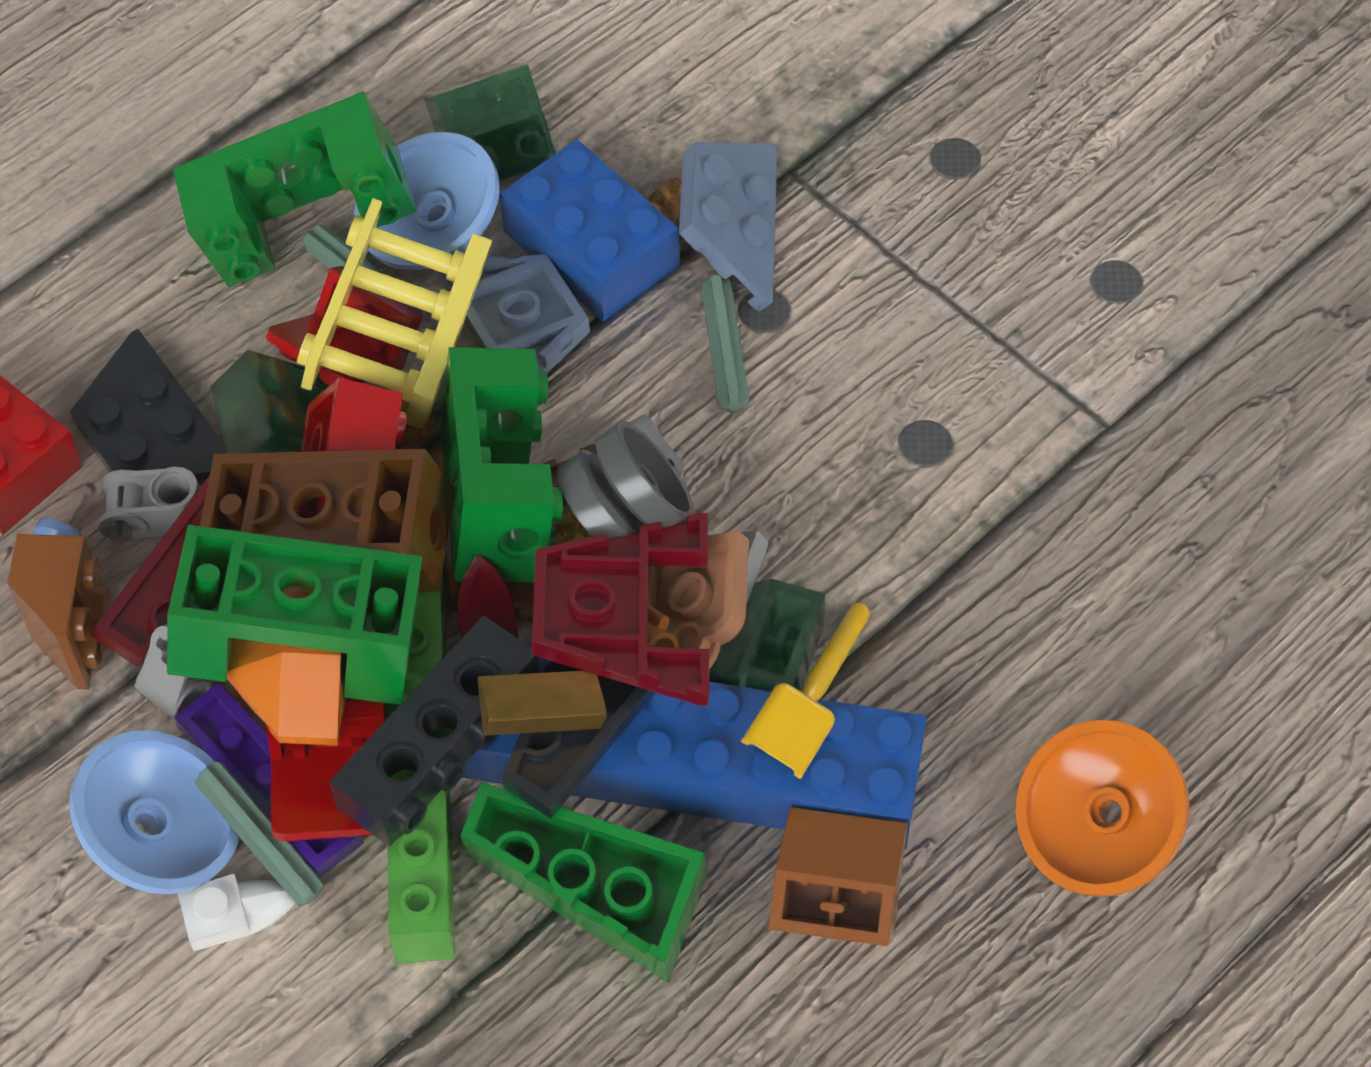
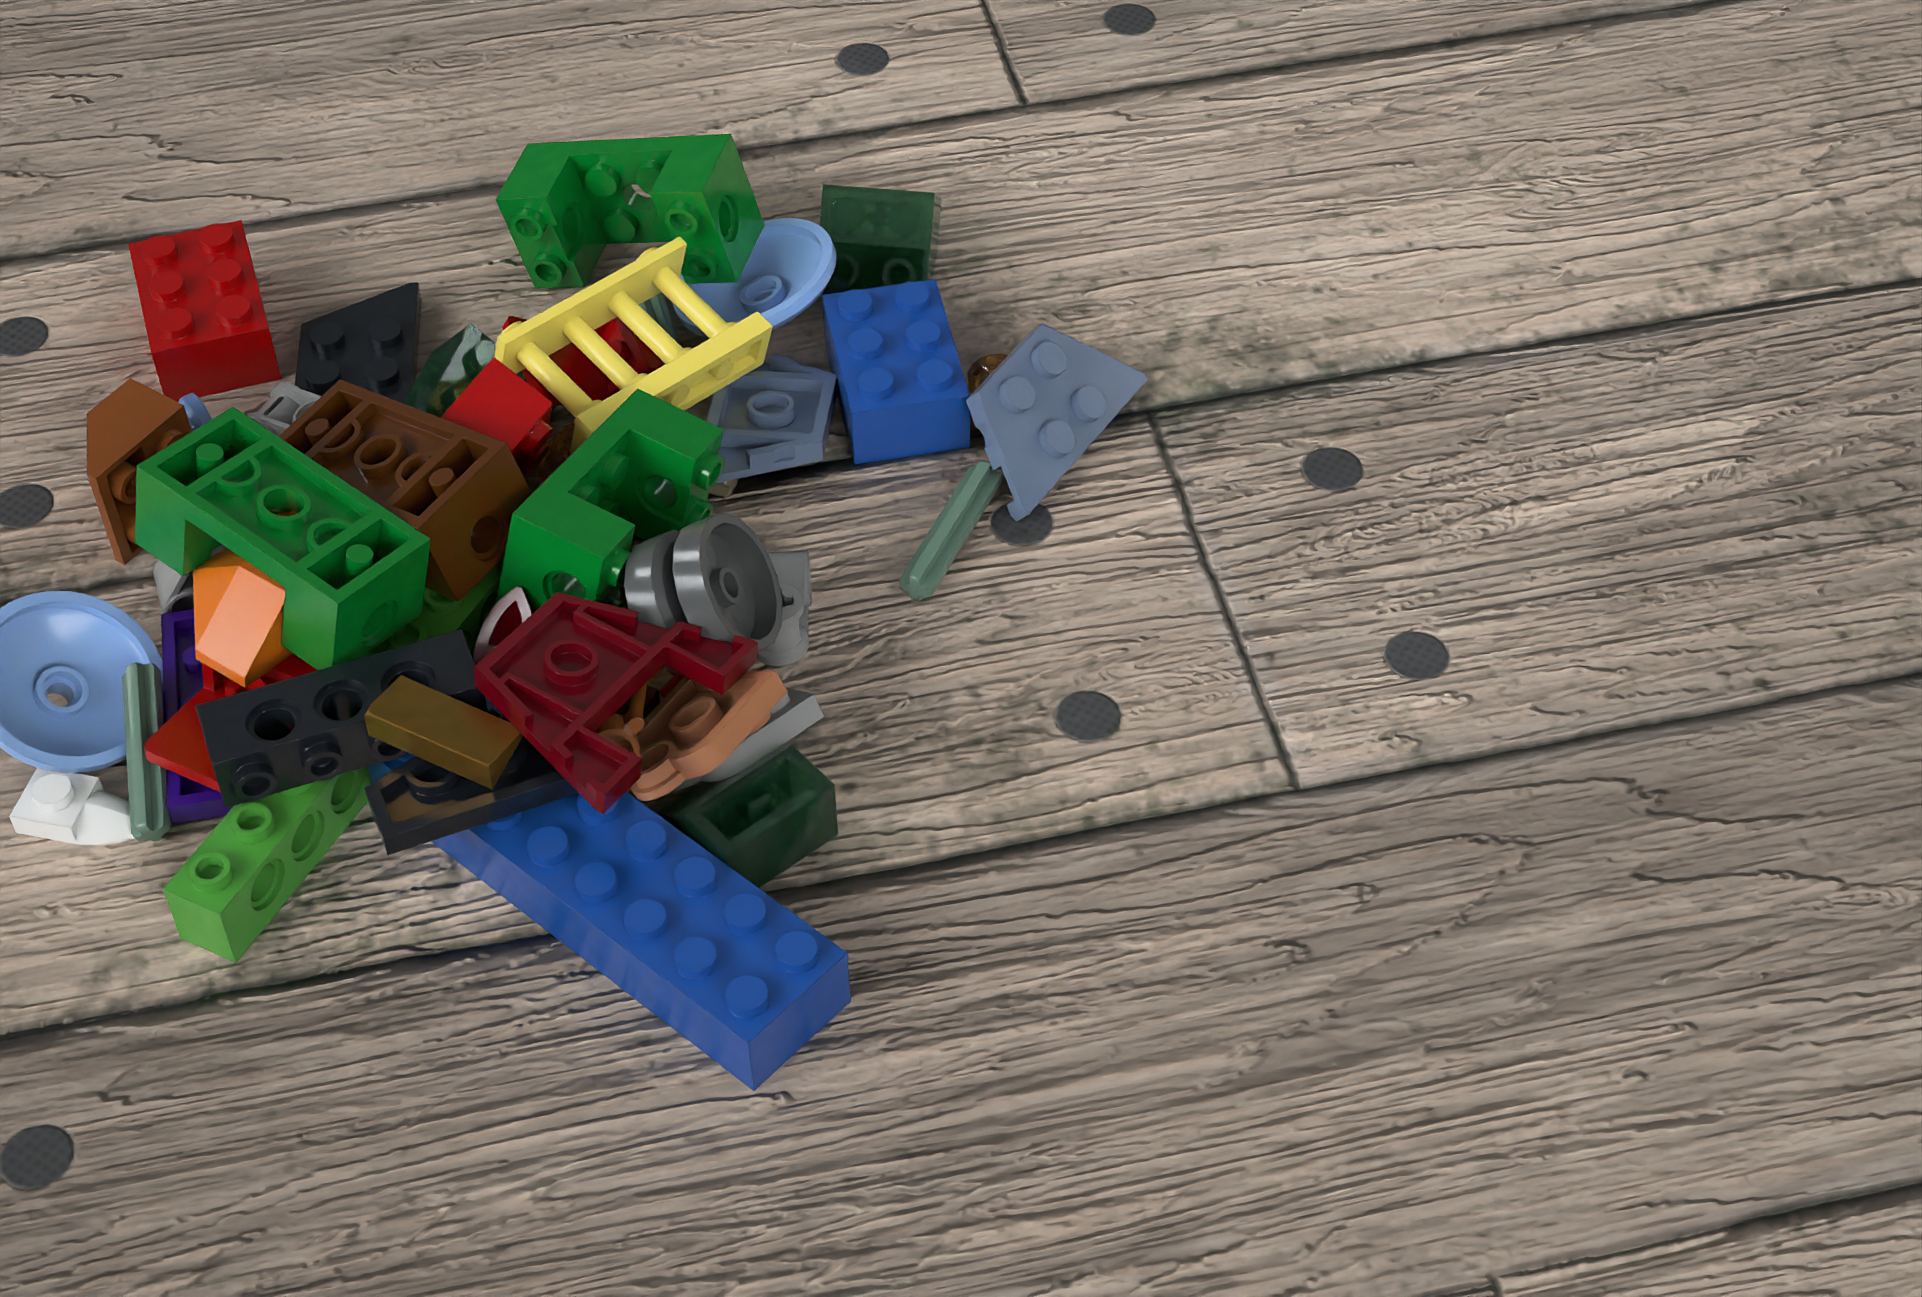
camera: 30 degrees right, 10 degrees down
(594, 873) = (418, 953): green wedge -> none
(792, 721) = (699, 886): yellow piece -> none
(838, 876) = (636, 1067): dark orange slope -> none
(1066, 802) = (967, 1143): orange dish -> none

